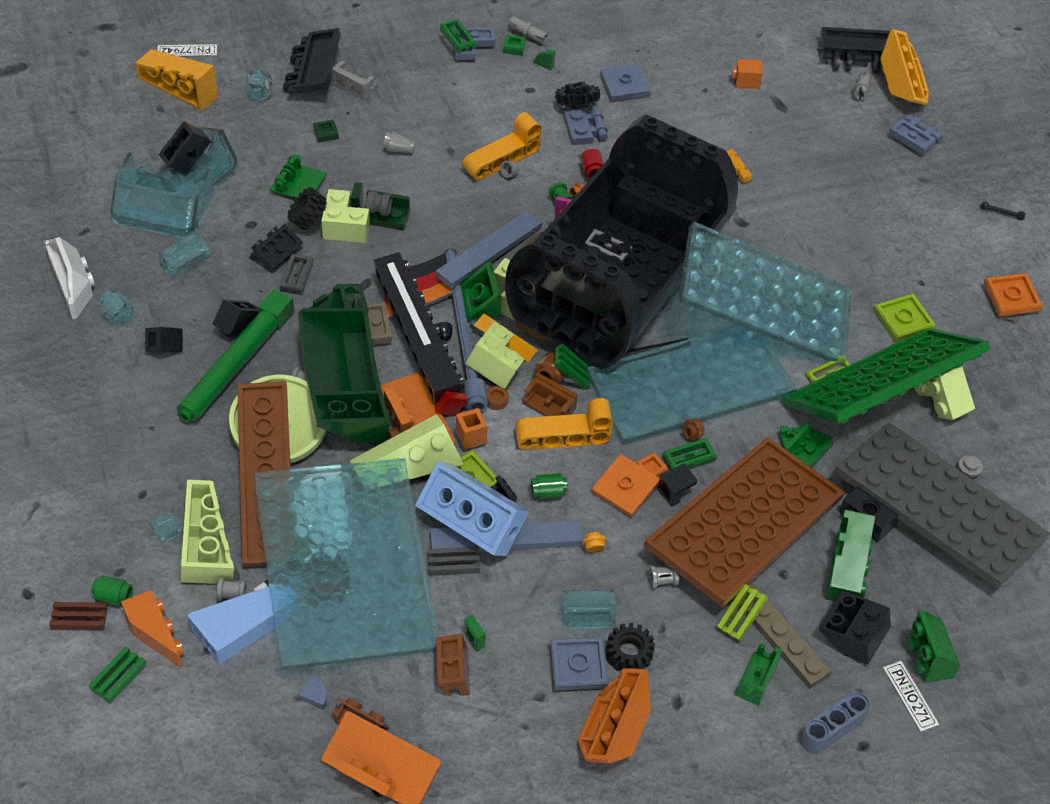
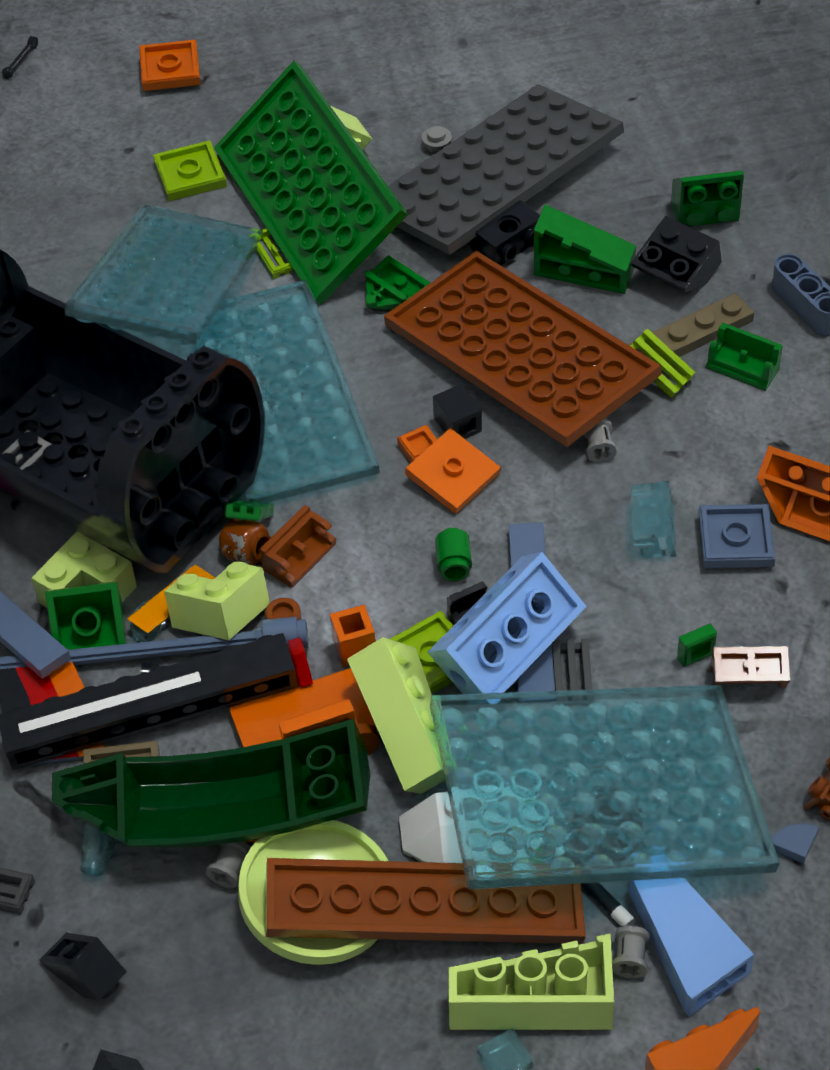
camera: 80 degrees left, 0 degrees up
(272, 315) = (84, 912): green brick -> none
(567, 430) = (356, 524): light orange beam -> none
(594, 542) = (548, 508): light orange plate -> none
(631, 635) = (714, 466): black tyre -> none
(690, 459) = (409, 422): green tile -> none
(693, 429) = (364, 391): dark orange plate -> none
(911, 696) = (758, 233): white sticker -> none

